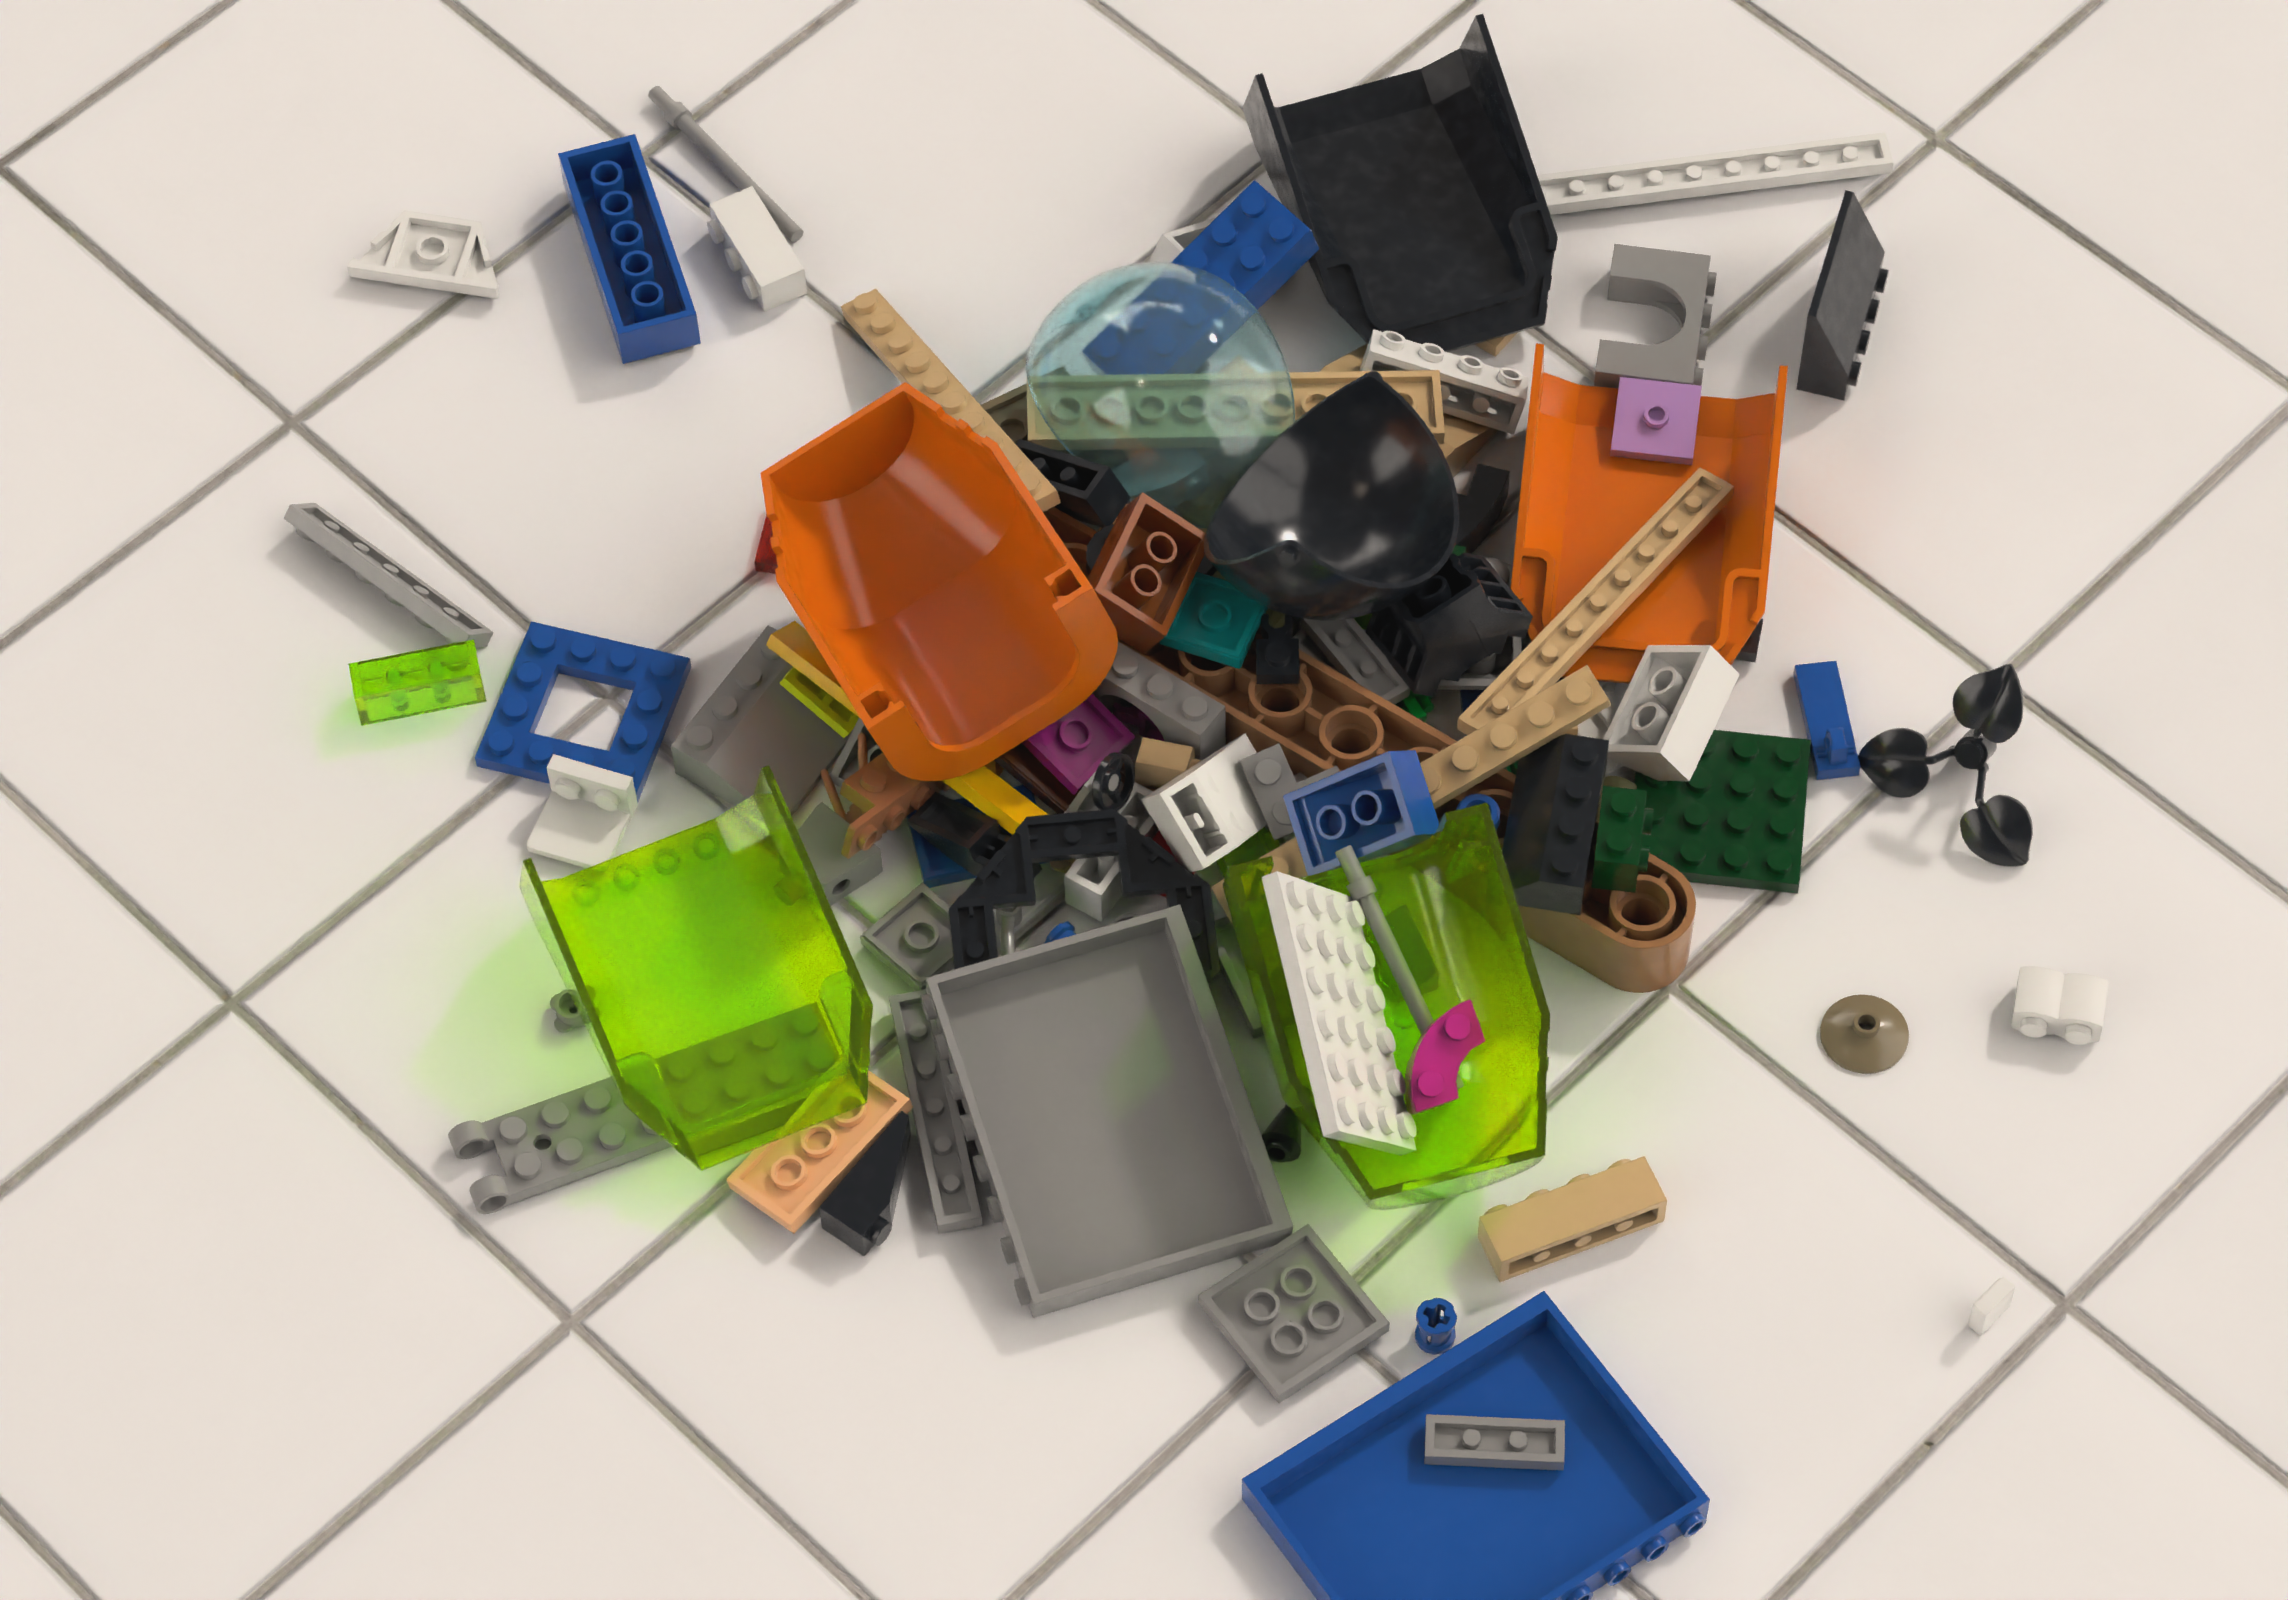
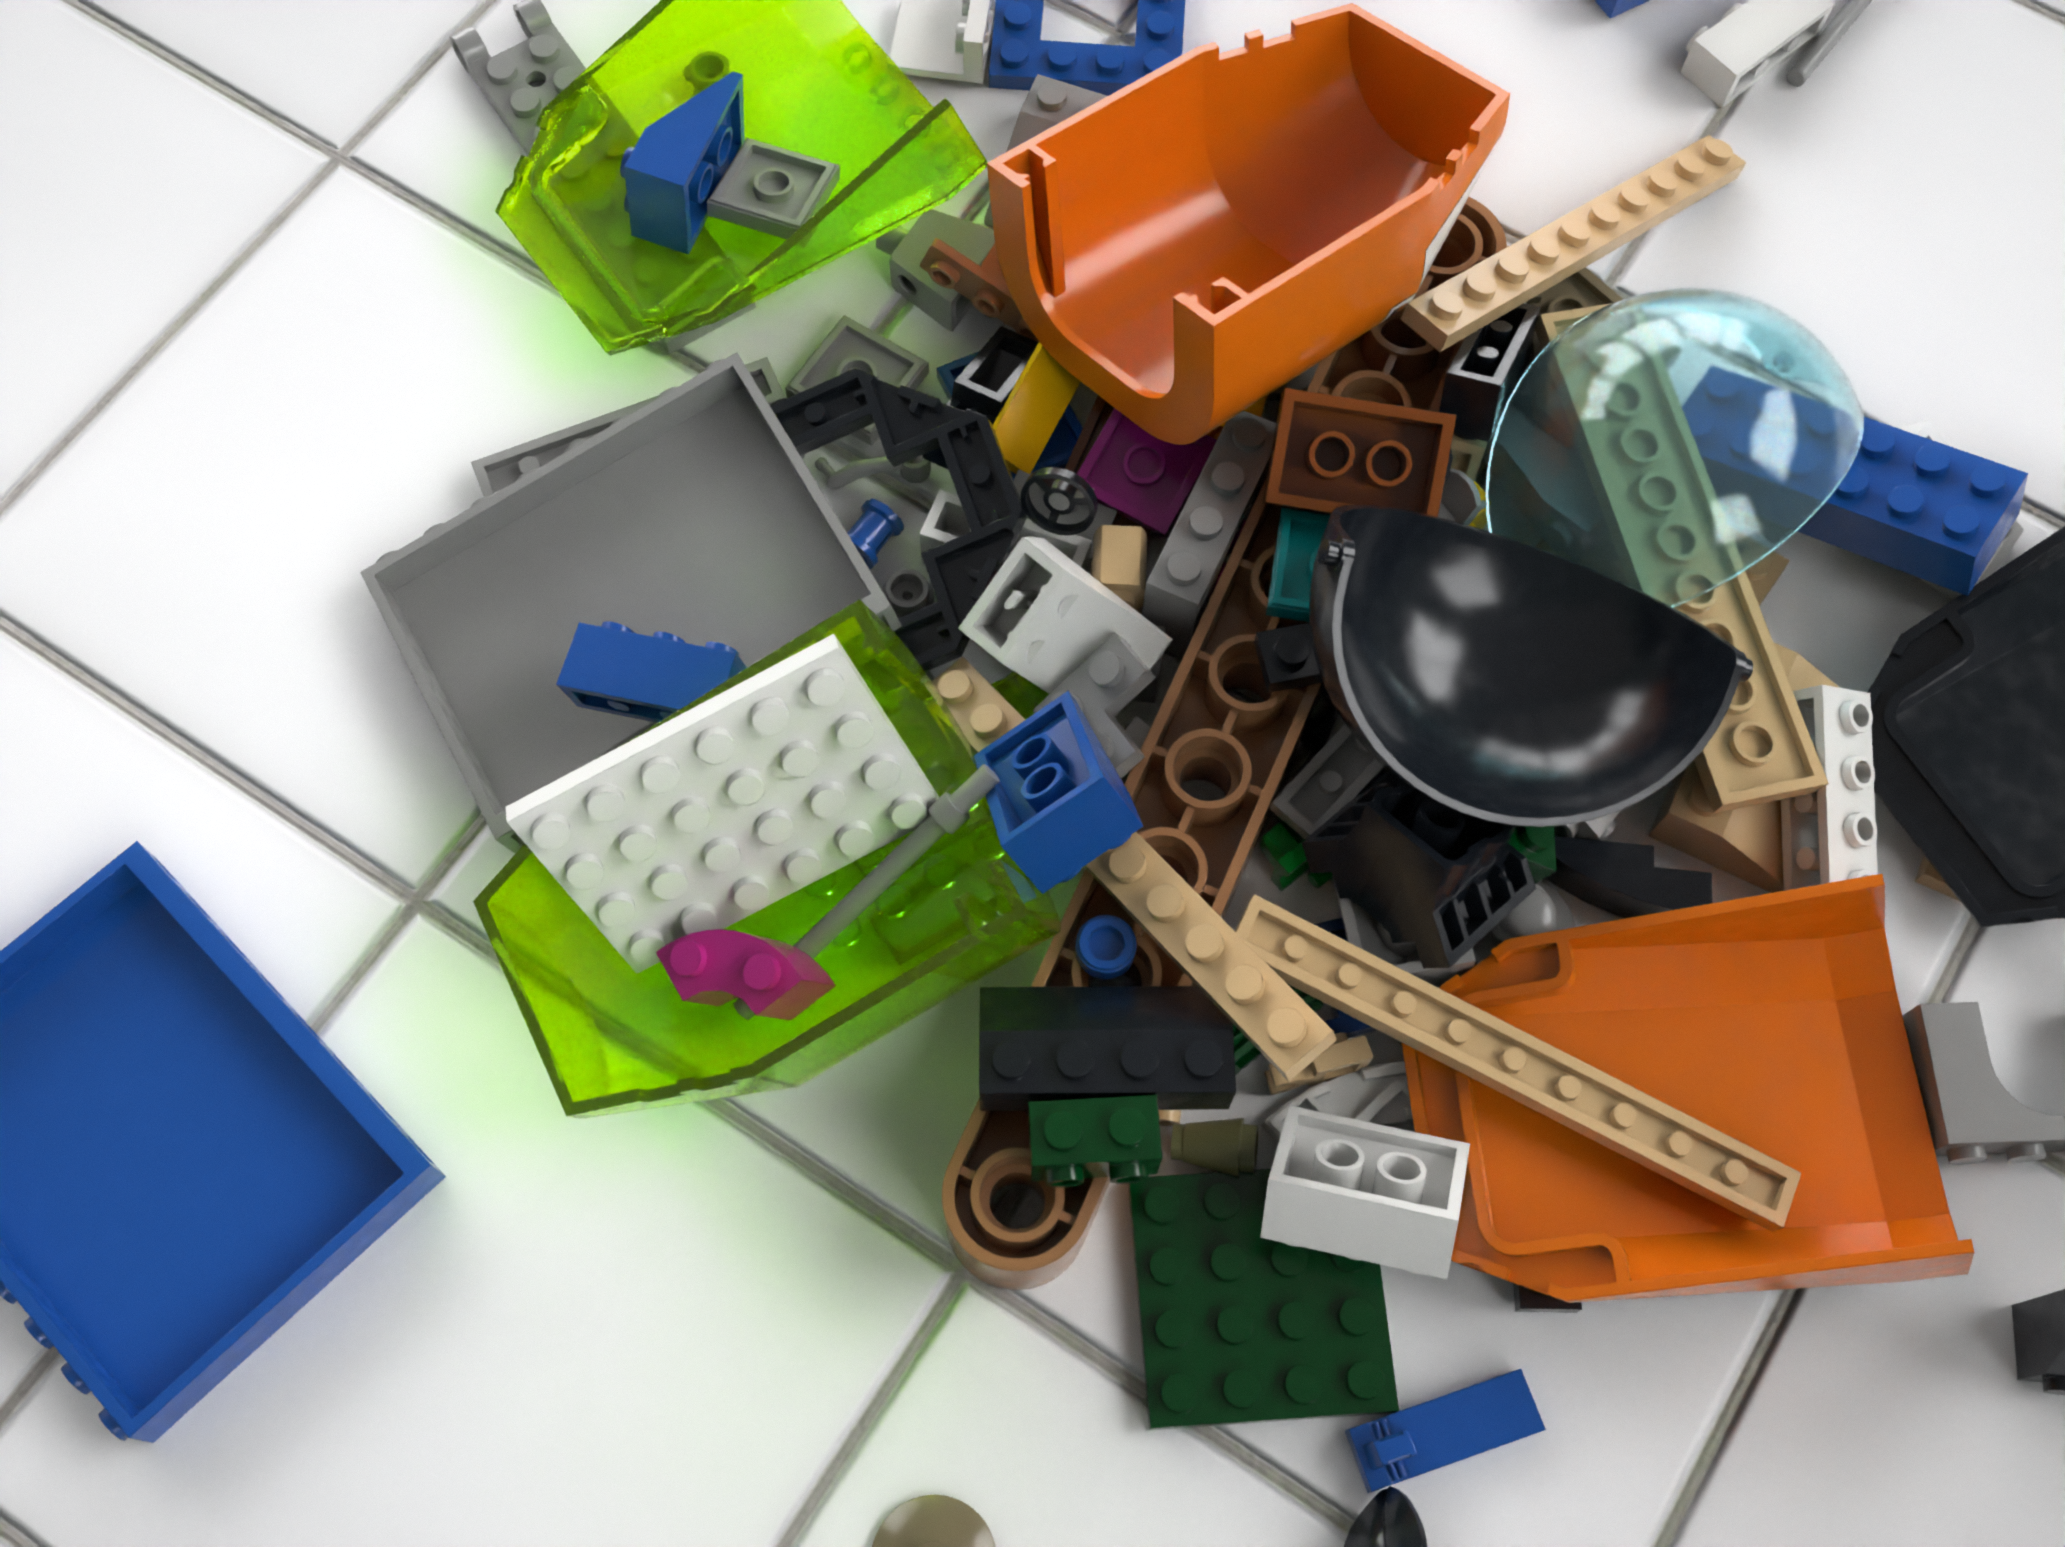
camera: 75 degrees right, 10 degrees up
(719, 1003) = (681, 164): none -> blue slope
(733, 959) = (772, 189): none -> light grey plate
(801, 1170) = (529, 320): light nougat plate -> none
(866, 1199) = (512, 391): black slope -> none
(1201, 1073) = (639, 673): none -> blue brick
(1293, 1313) = (395, 870): light grey plate -> none
(1443, 1334) = (391, 1057): blue bush -> none
(1494, 1442) = (226, 1143): light grey plate -> none
(1571, 1218) = (567, 1192): tan brick -> none
(1656, 421) = (1870, 1104): lavender plate -> none

